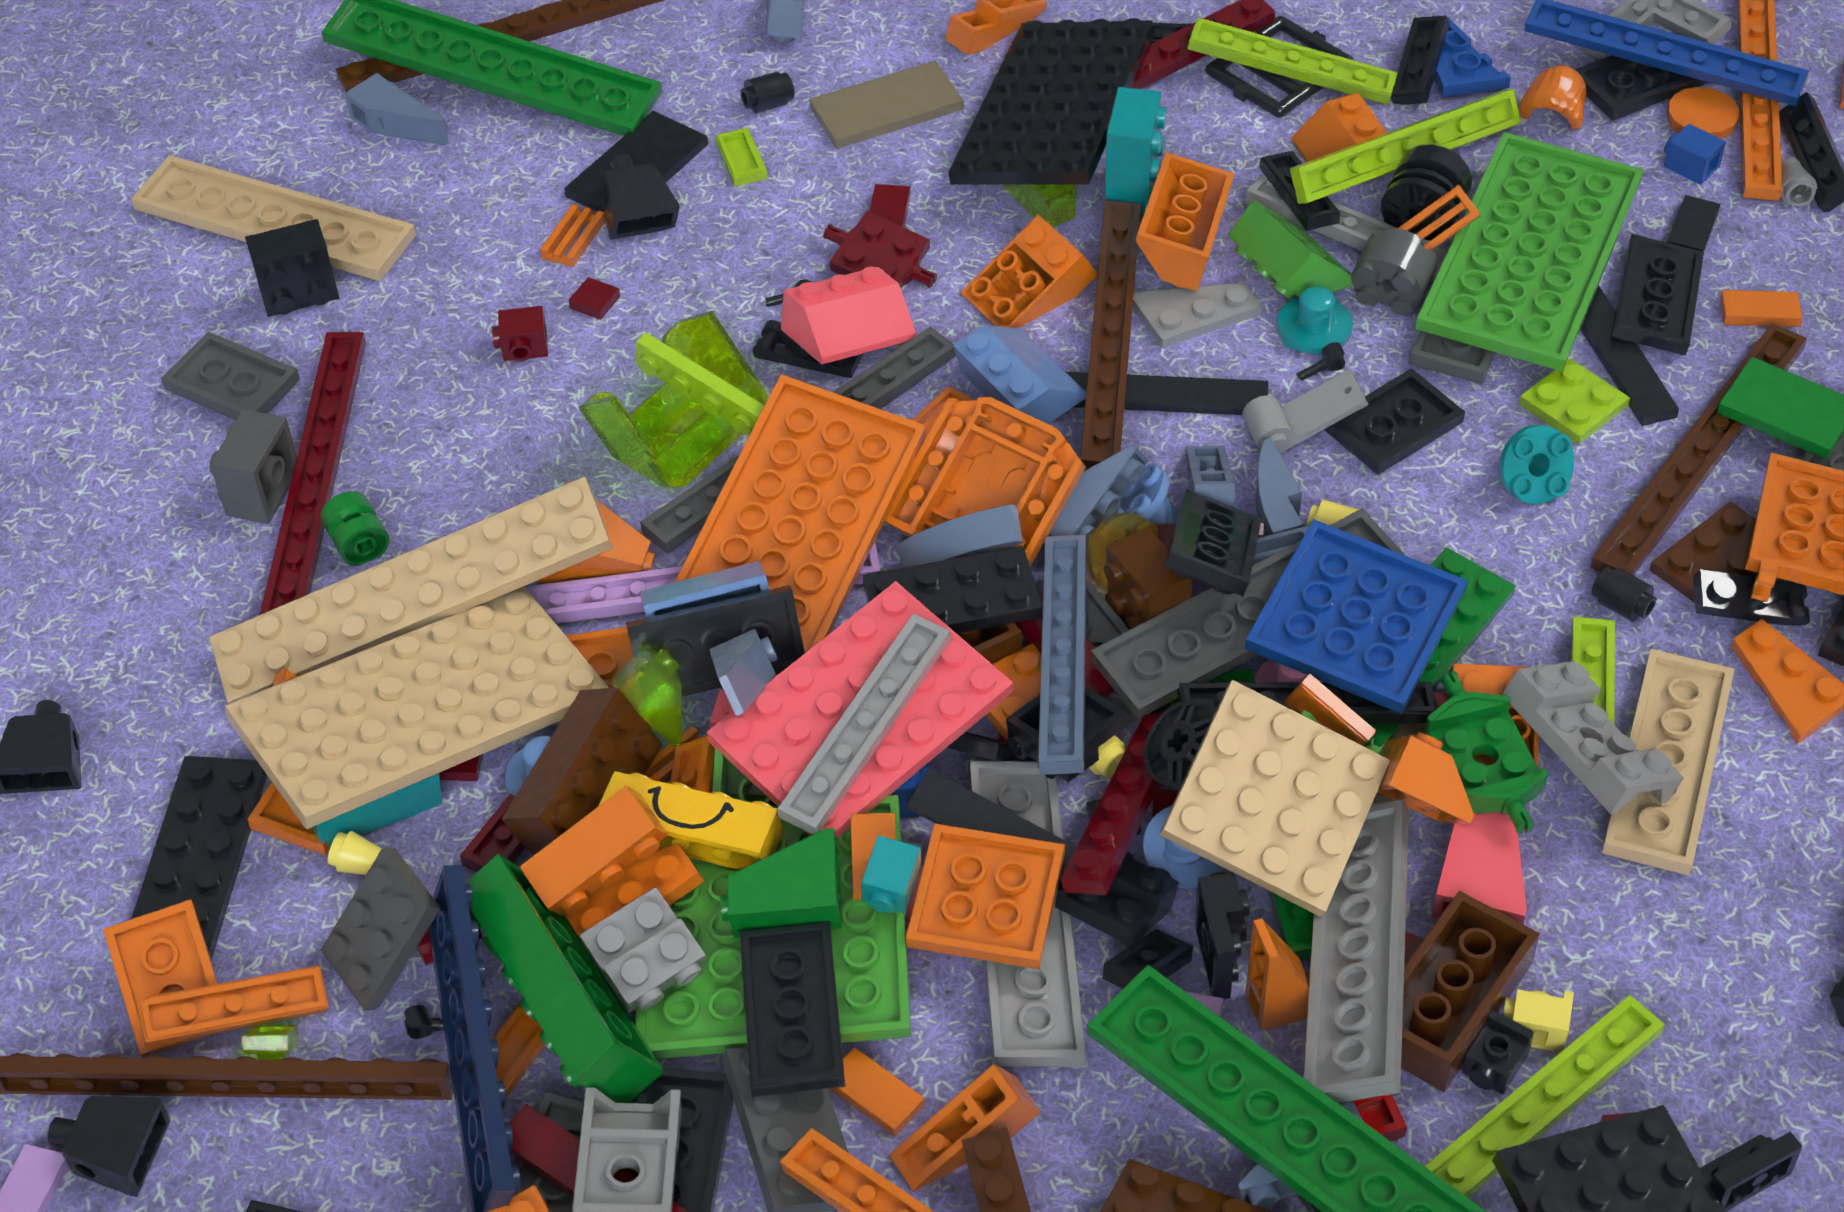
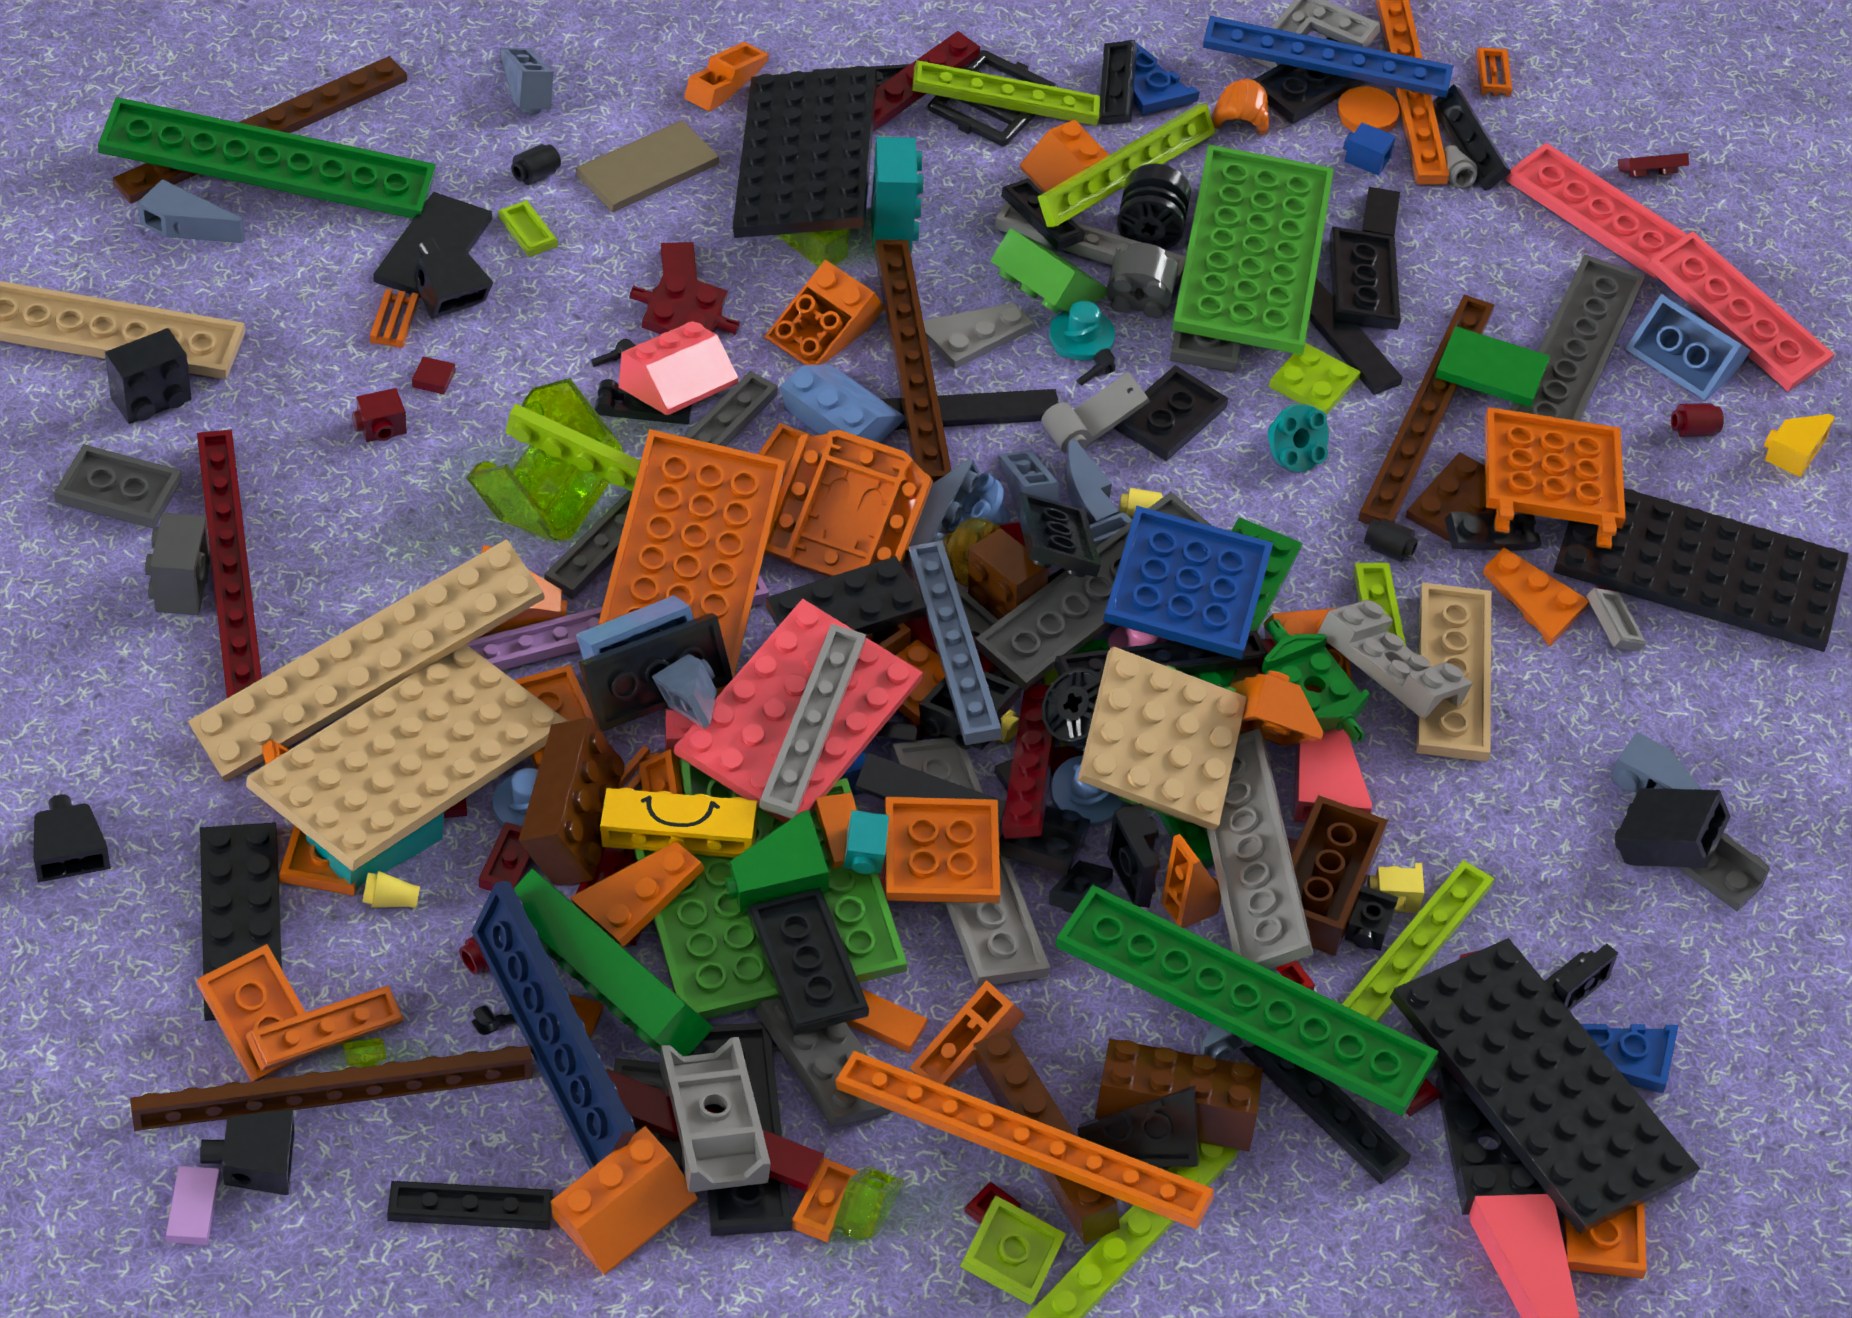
camera: 20 degrees left, 0 degrees up
(354, 528) = (287, 609): green wheel -> none
(380, 929) = (437, 946): dark grey plate -> none
(594, 852) = (611, 856): orange brick -> none
(644, 951) = (672, 932): light grey plate -> none
(654, 690) = (614, 716): clear neon green slope -> none
(963, 536) = (838, 556): sand blue slope -> none
(1183, 219) = (954, 251): orange slope -> none
(1329, 710) = (1175, 654): orange tile -> none
(1451, 231) = (1194, 214): orange tile -> none
(1760, 308) = (1450, 281): orange tile -> none

